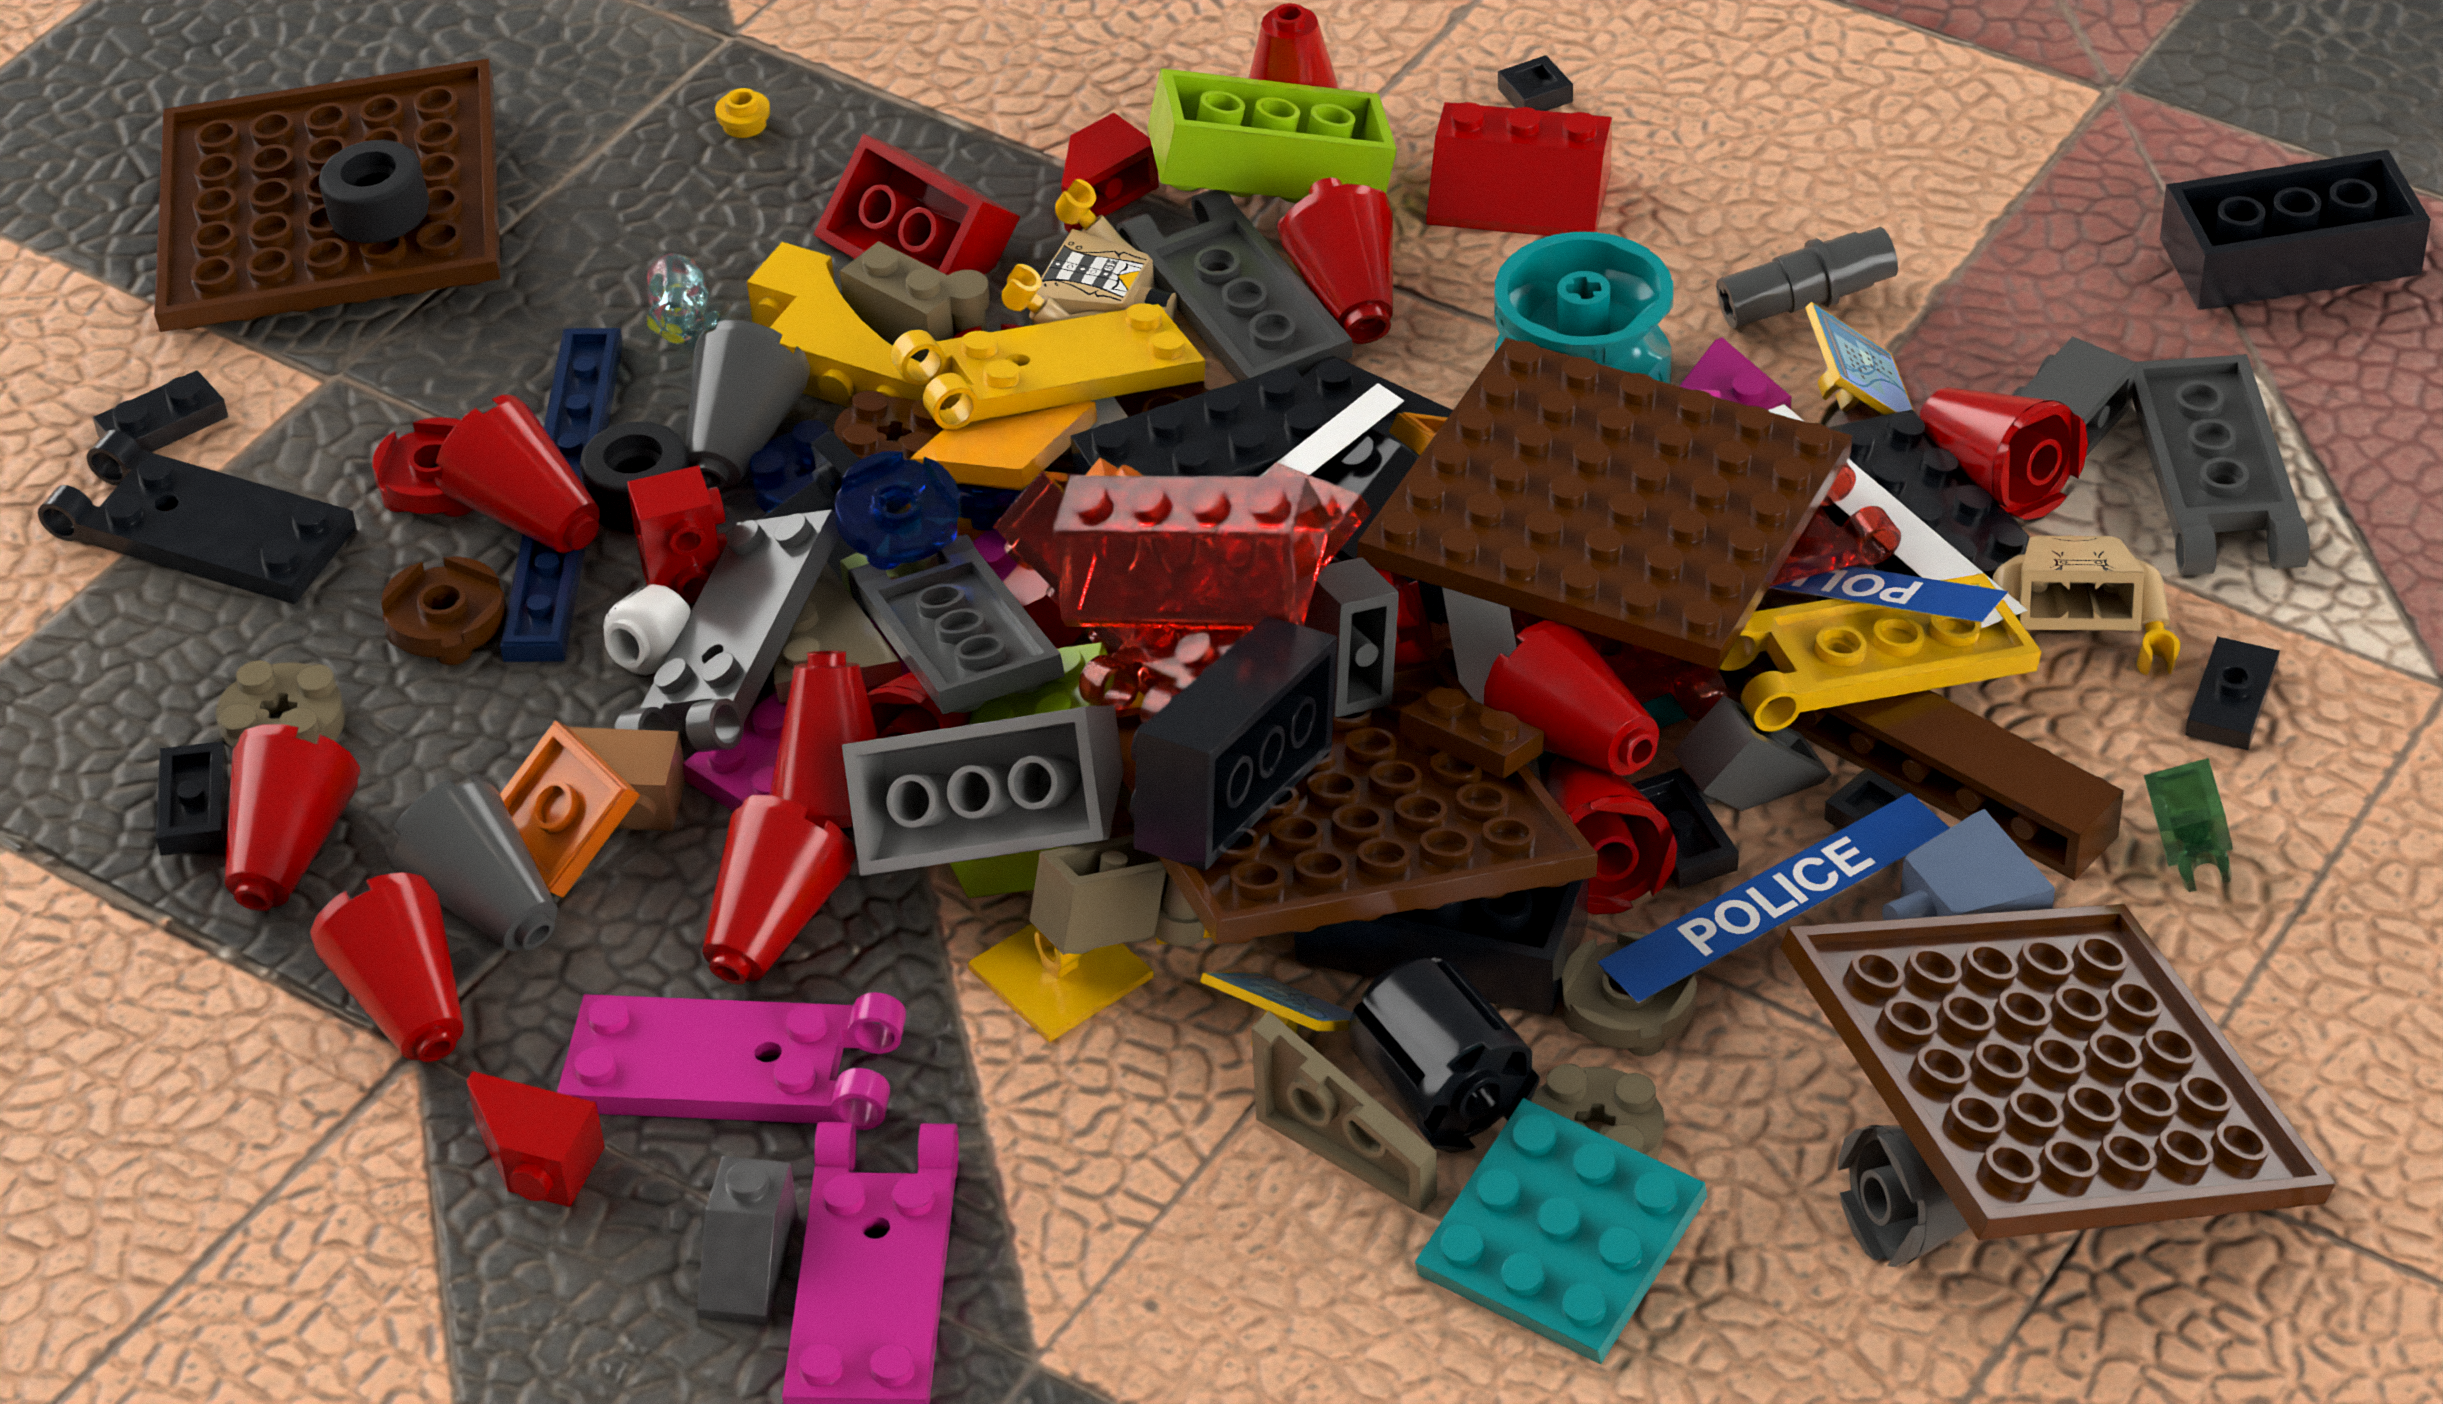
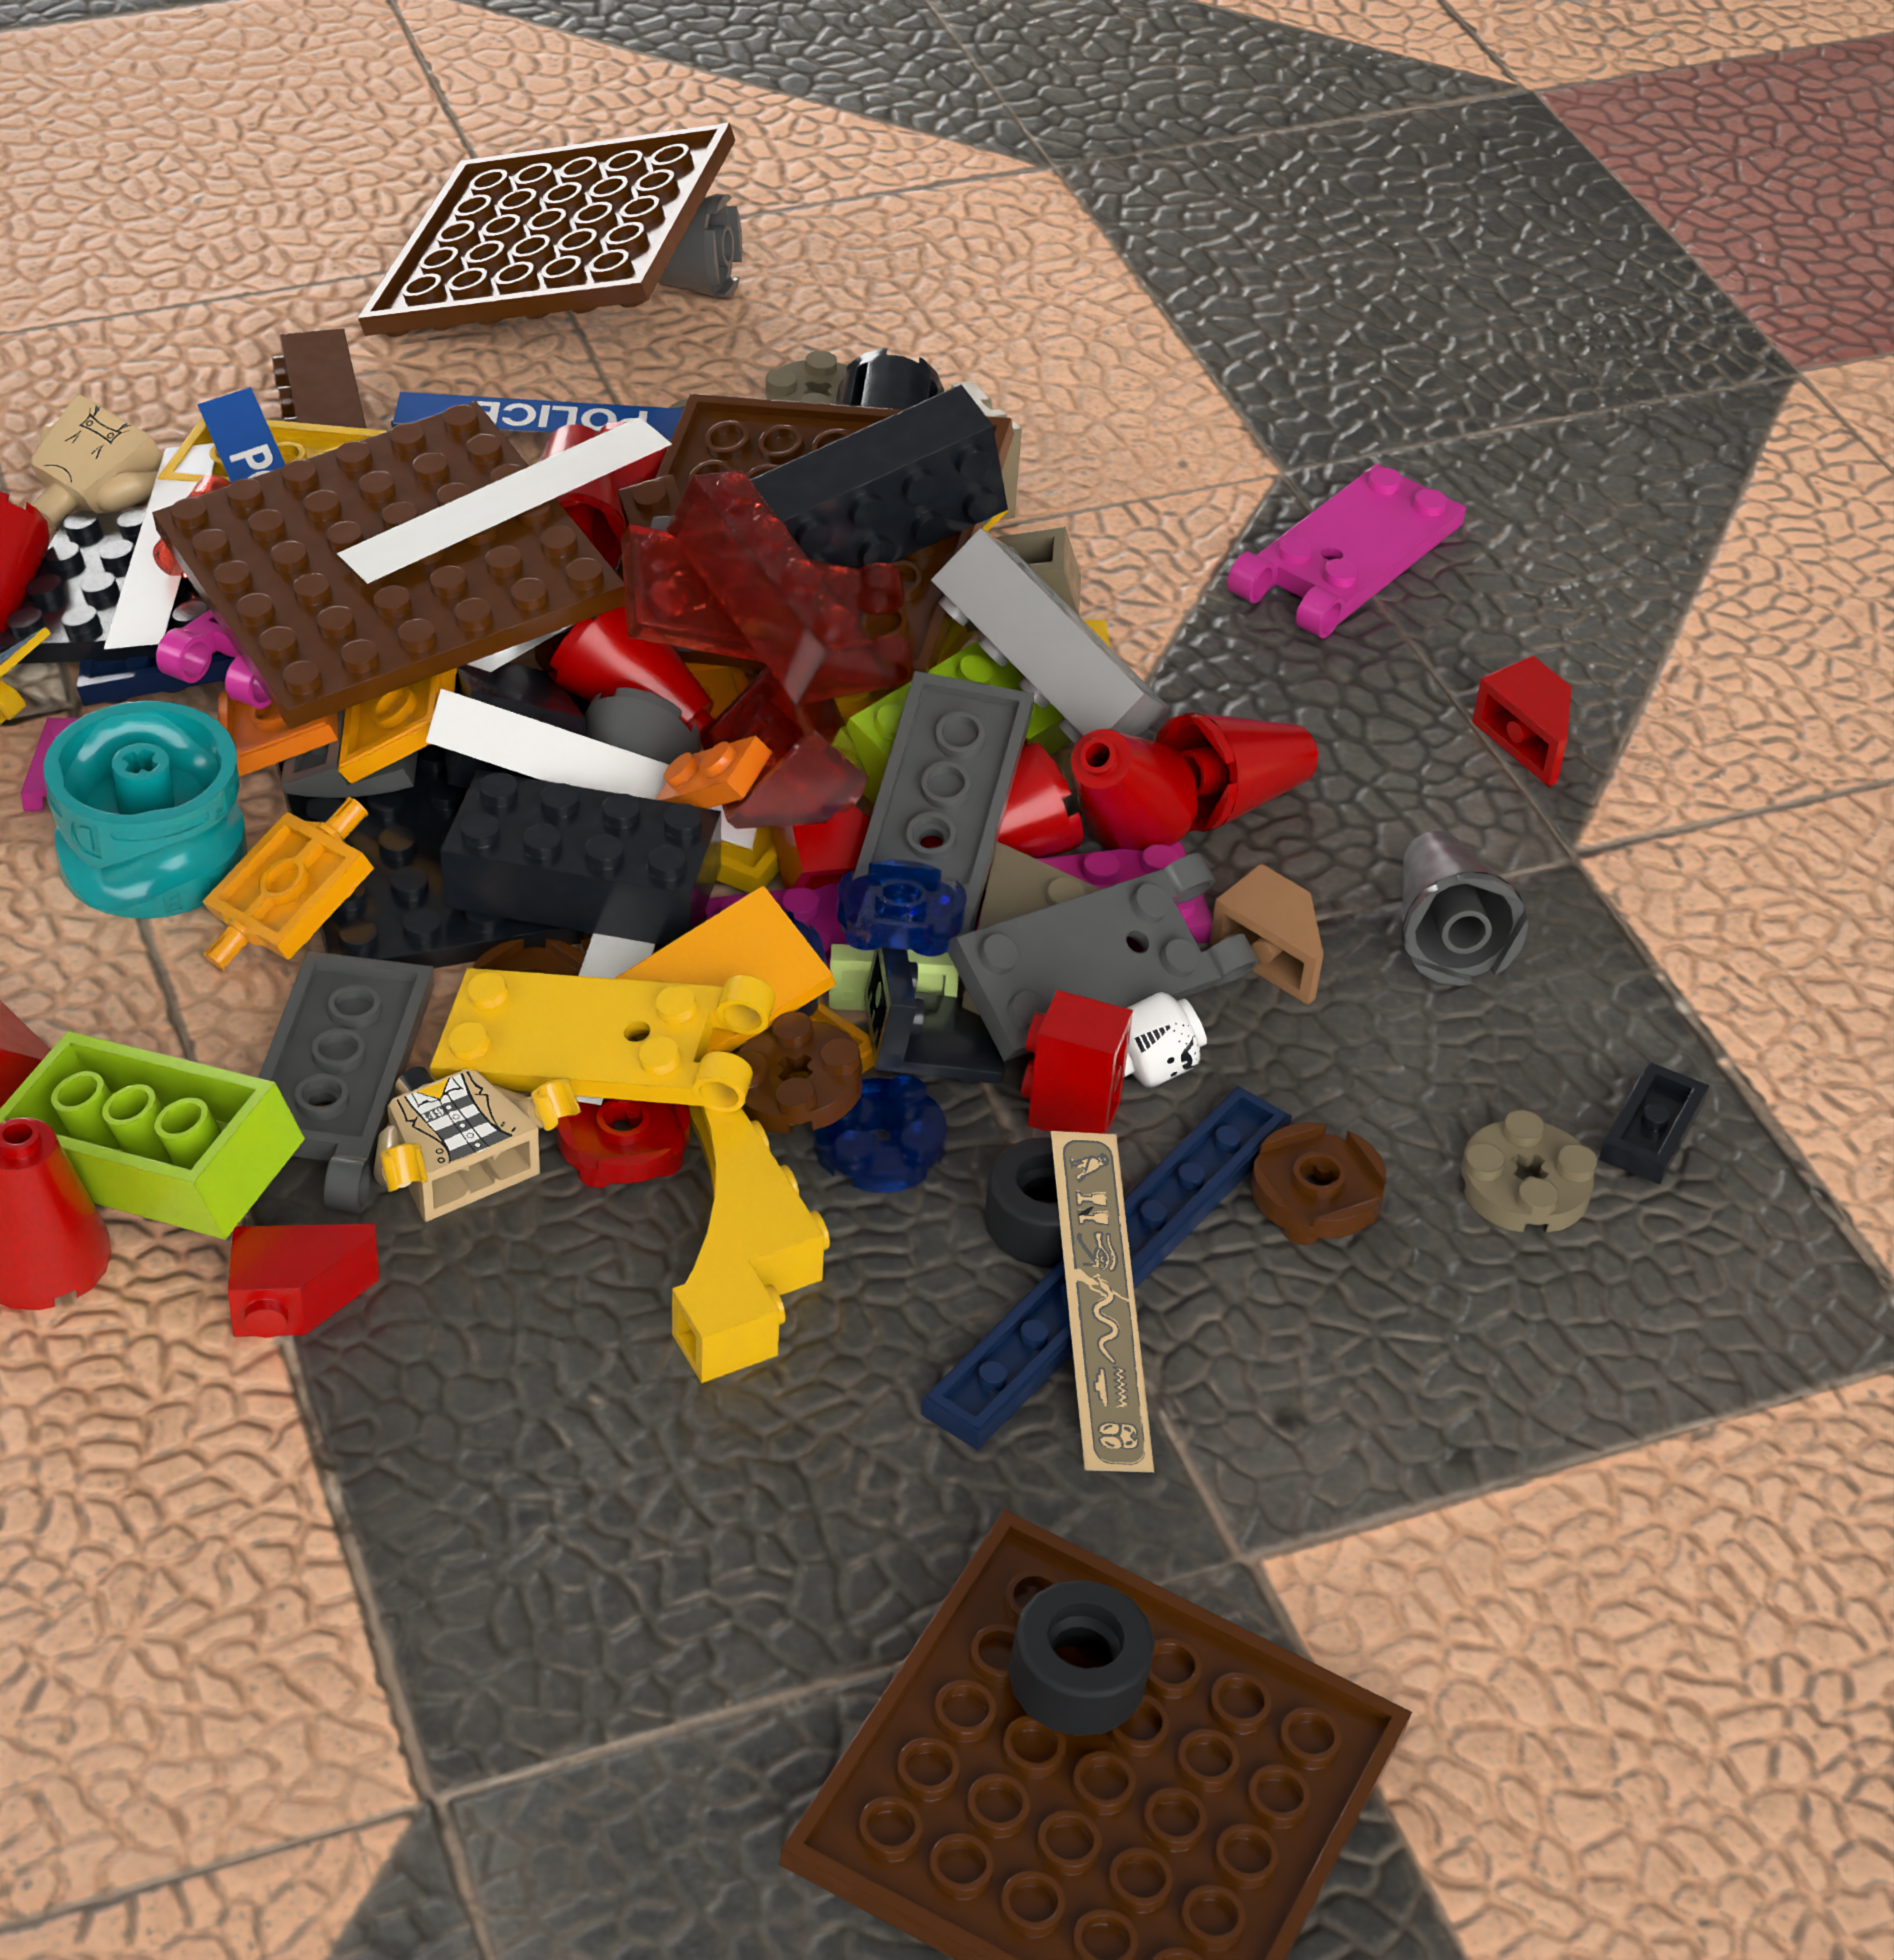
camera: 150 degrees left, 0 degrees up
(166, 412) = (1466, 1599): black plate -> none
(216, 525) = (1475, 1404): black hinge -> none
(282, 810) = (1581, 1035): red cone -> none
(395, 962) = (1568, 870): red cone -> none
(406, 472) = (1218, 1373): red plate -> none
(517, 476) = (1186, 1206): red cone -> none
(566, 805) = (1352, 913): orange tile -> none
(606, 459) = (1101, 1303): none -> sticker
(678, 299) = (841, 1385): clear light blue animal -> none
(706, 1053) = (1354, 719): dark pink hinge -> none
(739, 397) = (894, 1197): dark grey cone -> none
(743, 112) = (544, 1646): yellow plate -> none
(746, 1239) = (1418, 591): flat silver slope -> none
(905, 295) = (636, 1218): dark tan hinge -> none
(915, 211) = (527, 1330): red slope -> none
(1345, 253) = (216, 1008): red cone -> none
(1418, 359) = (287, 885): none -> light orange plate
(1547, 555) = (503, 500): none -> white sticker
(1561, 1230) = (911, 328): teal plate -> none
(1969, 872) = (436, 360): sand blue torso -> none
(2190, 819) = (255, 315): clear green brick -> none
(2232, 693) = (110, 386): black plate -> none

